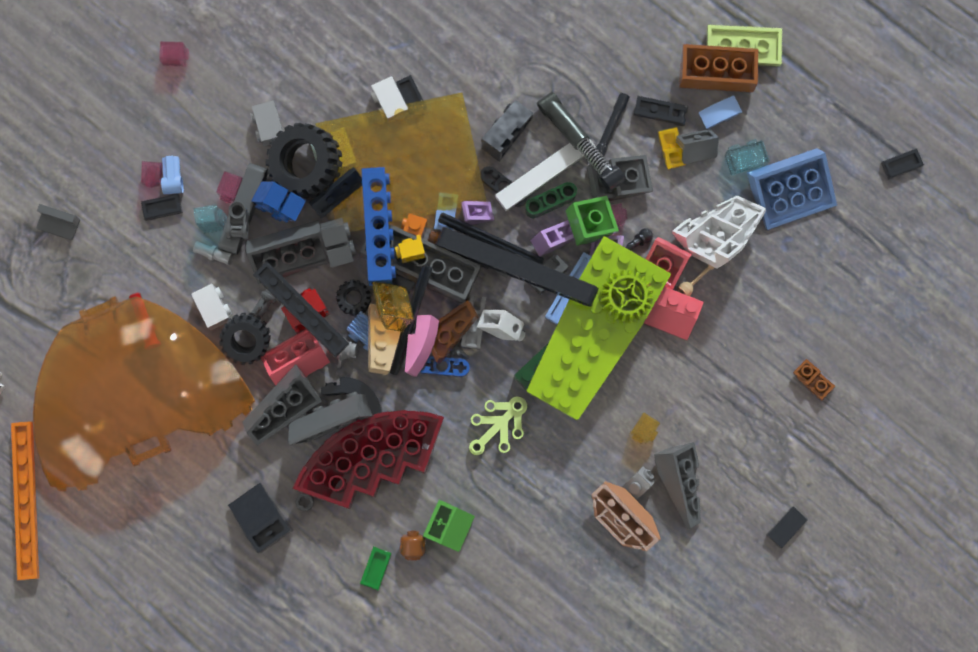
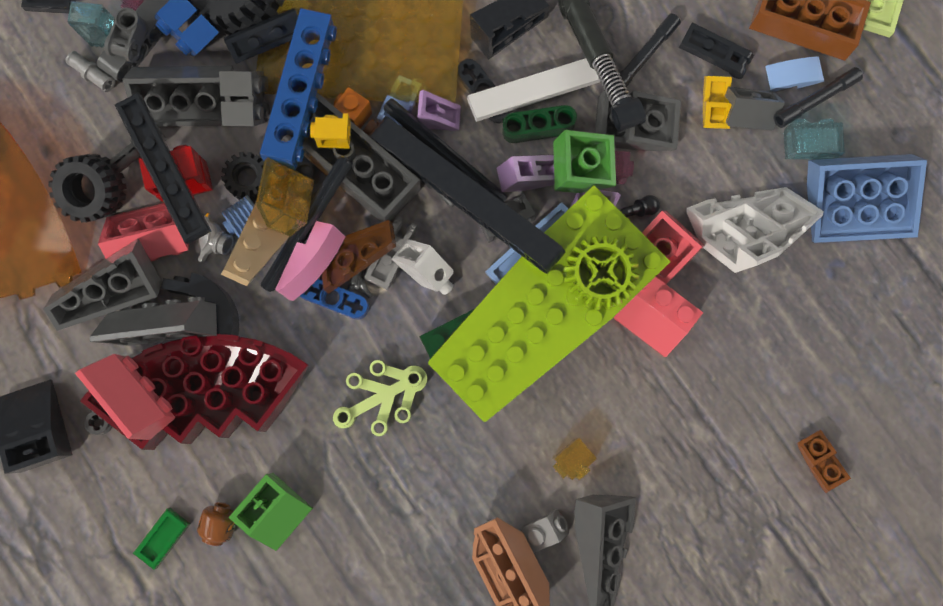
camera: 25 degrees right, 0 degrees up
(211, 306) = (63, 134): white brick -> none
(331, 472) = (127, 396): none -> coral slope
(687, 288) = (686, 288): tan hinge -> none
(728, 140) = (796, 110): none -> black piece

